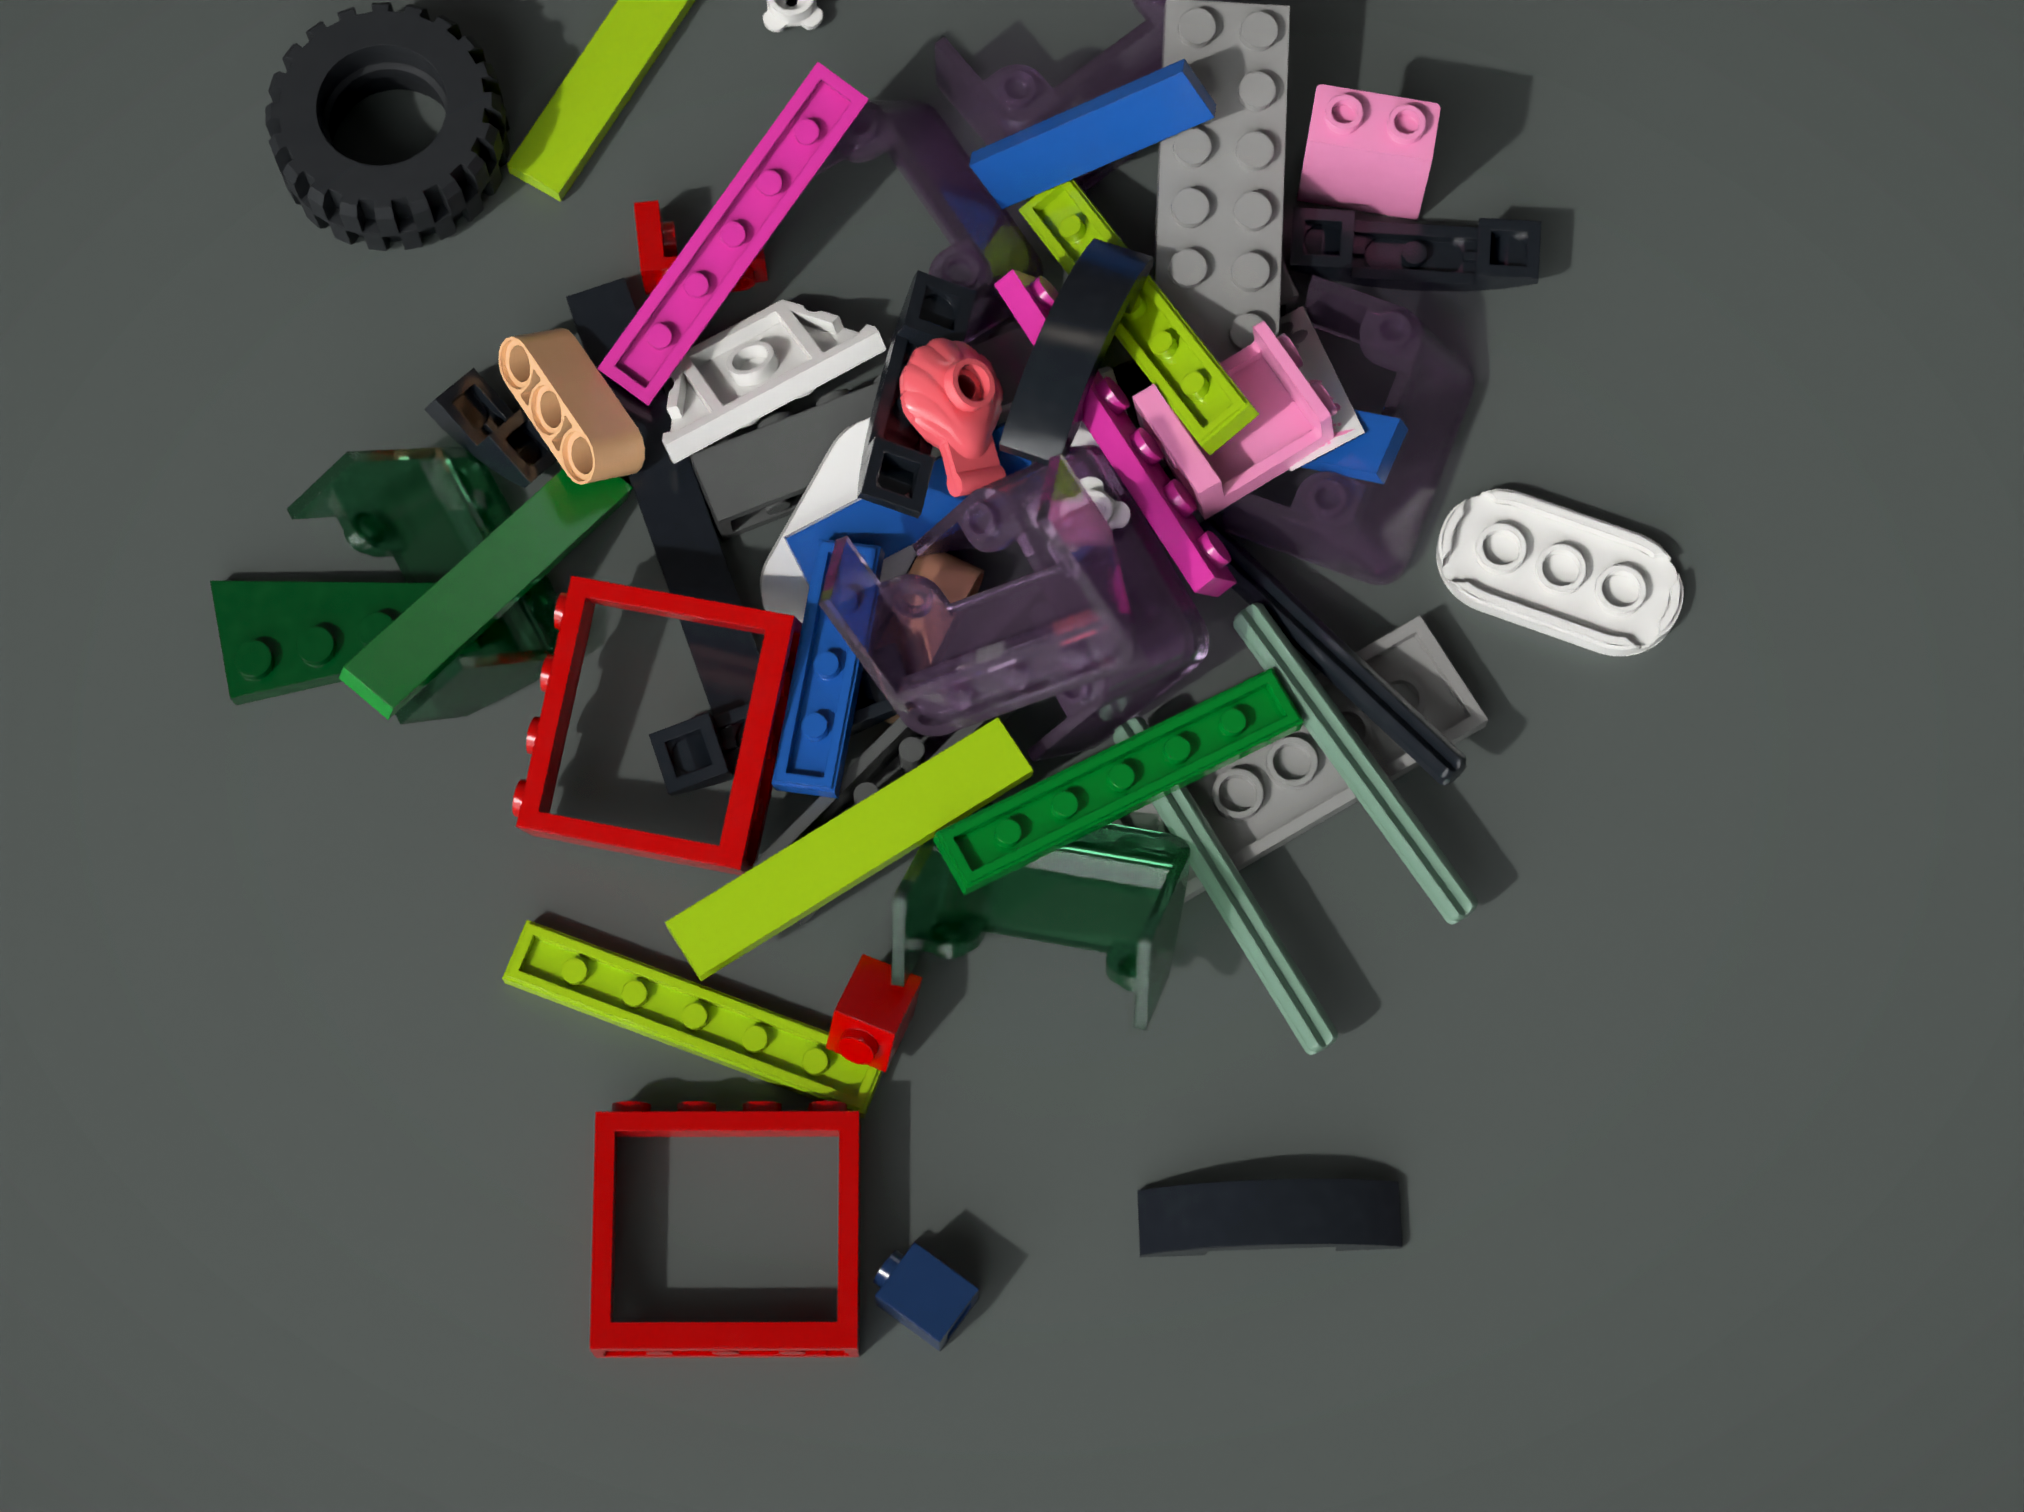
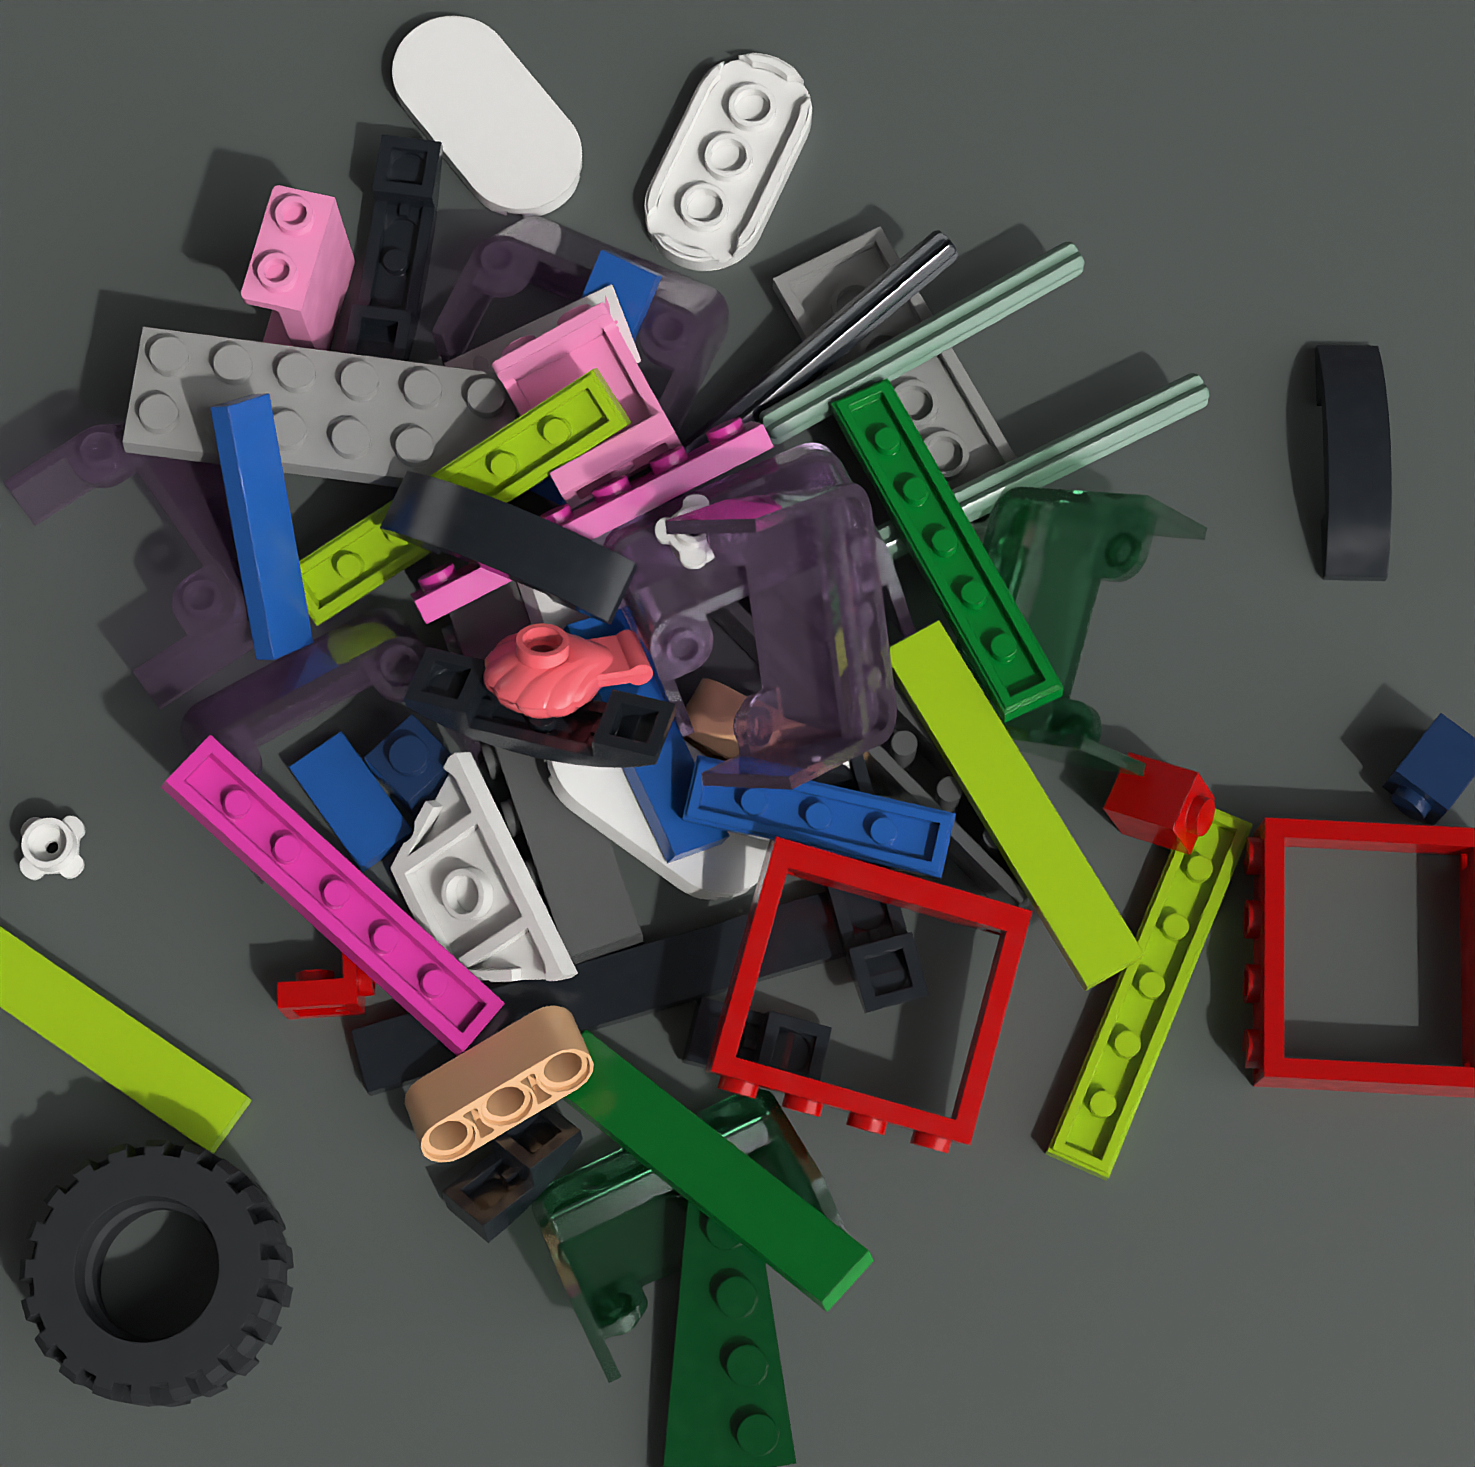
camera: 85 degrees left, 0 degrees up
(621, 657) = (766, 1040): none -> black slope
(849, 260) = (352, 801): none -> blue tile
(873, 299) = (410, 764): none -> dark blue brick
(1587, 330) = (489, 115): none -> white tile

